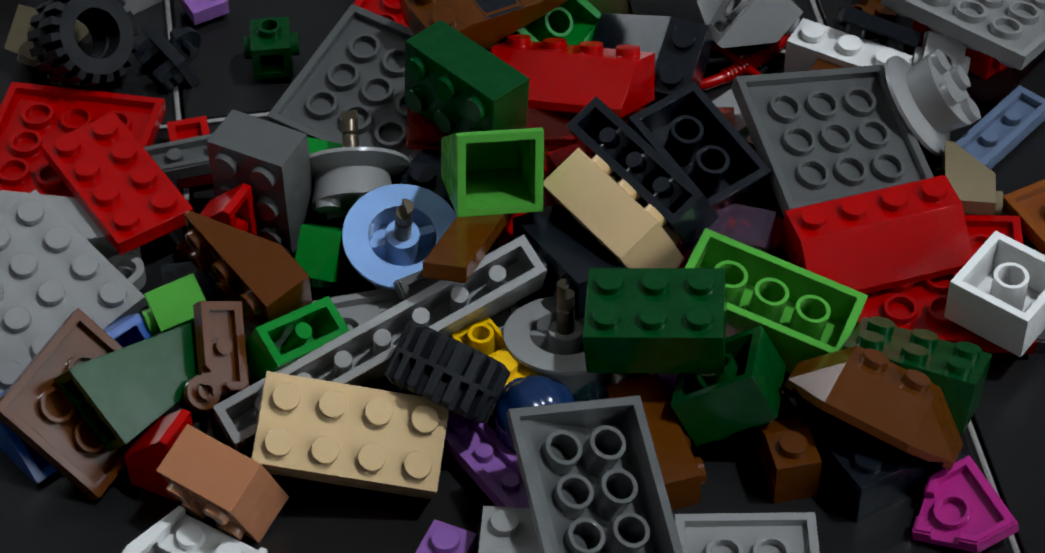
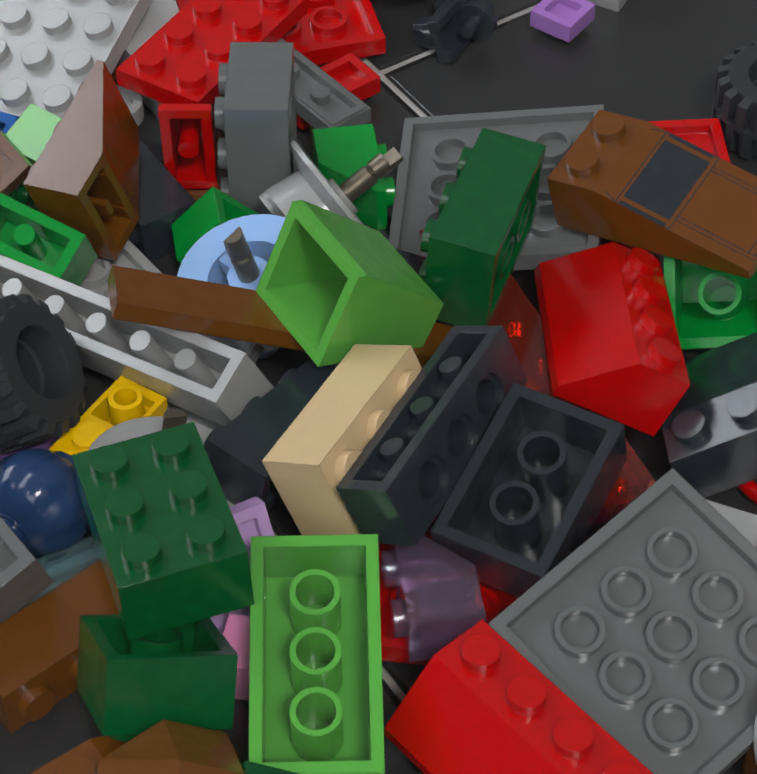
camera: 65 degrees right, 0 degrees up
(271, 47) = (515, 80): dark green brick -> none

